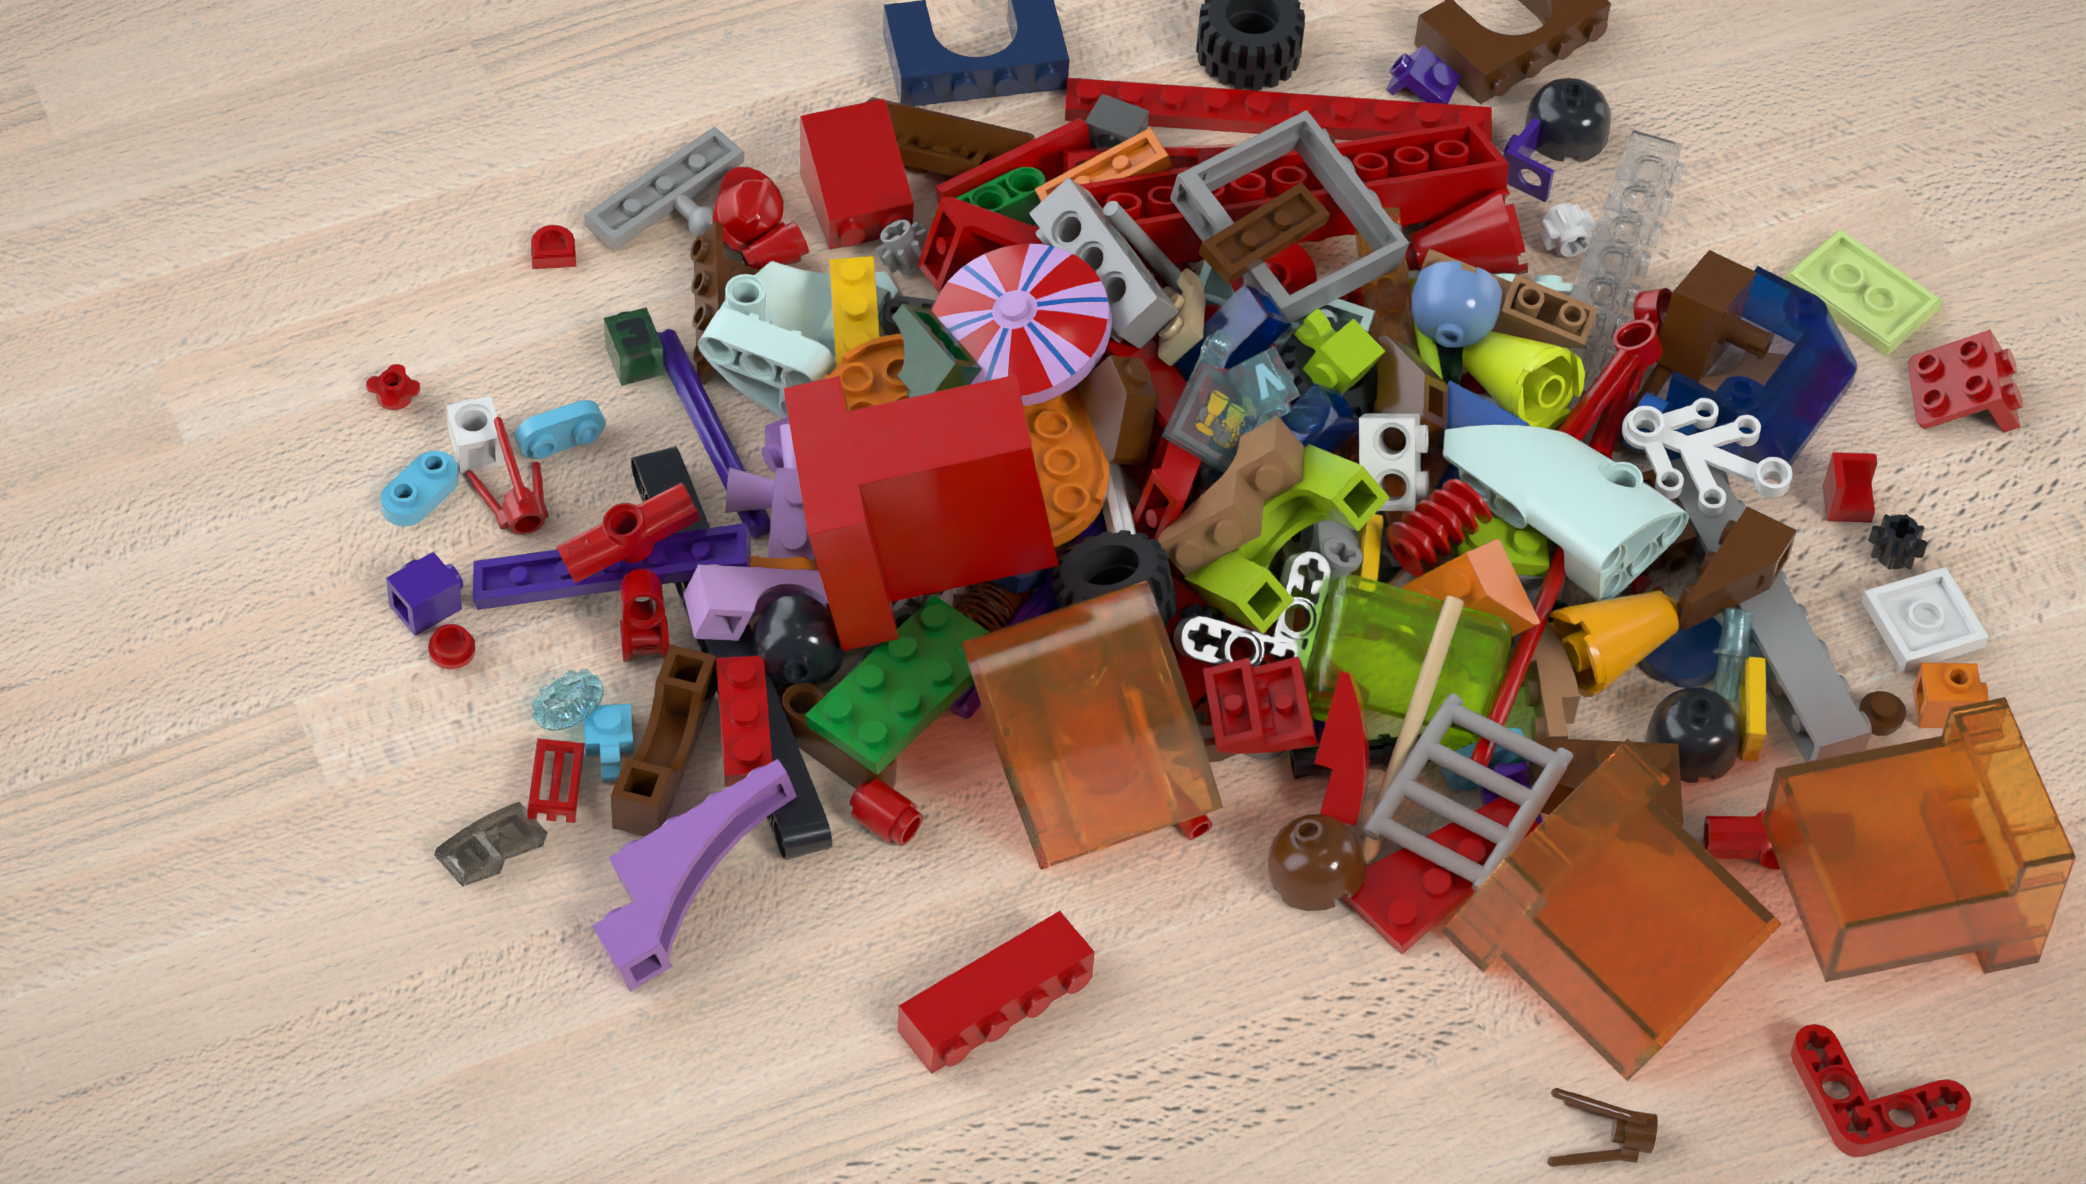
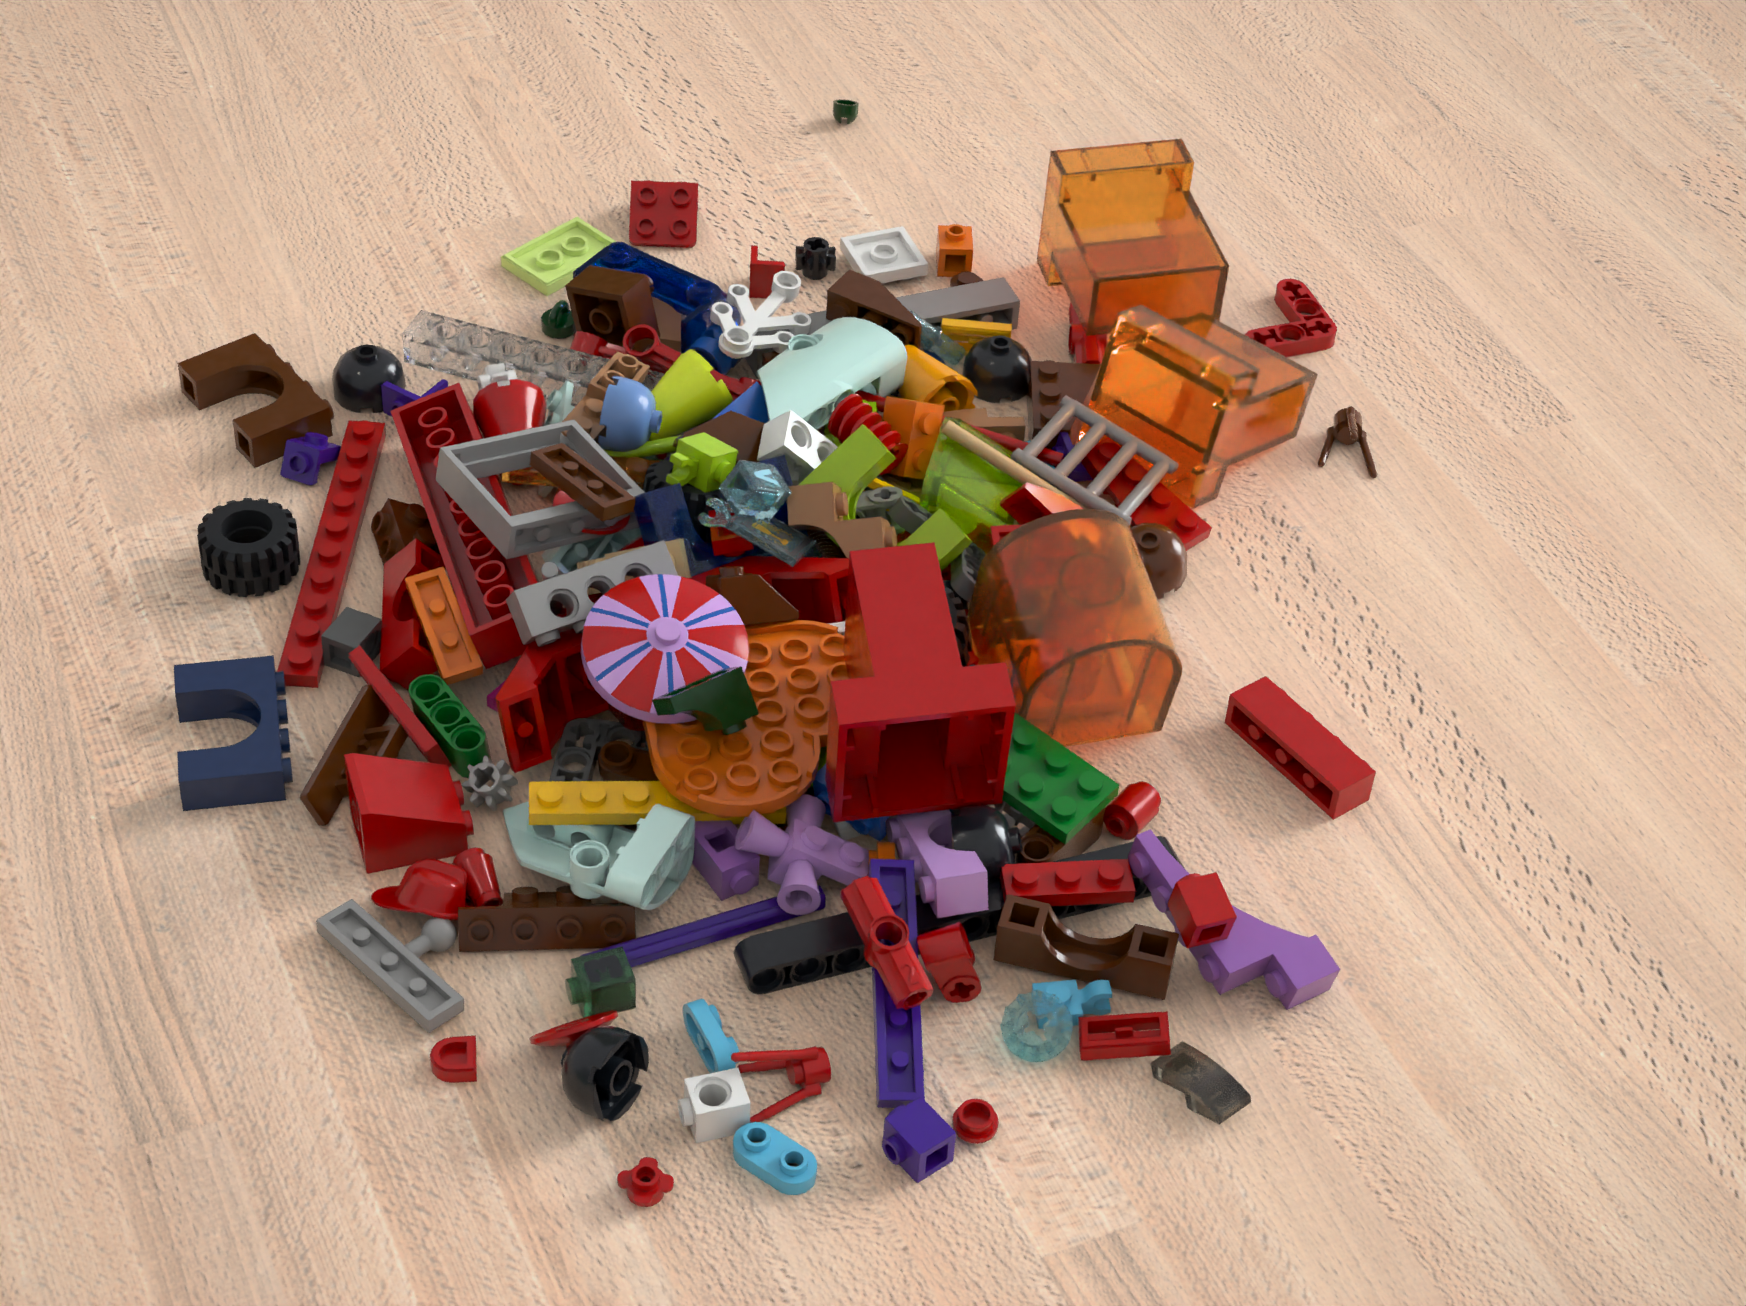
camera: 90 degrees left, 10 degrees down
(506, 339) = (602, 1071): none -> black cylinder
(568, 320) = (567, 1033): none -> red dish
(668, 810) = (1201, 909): none -> red brick

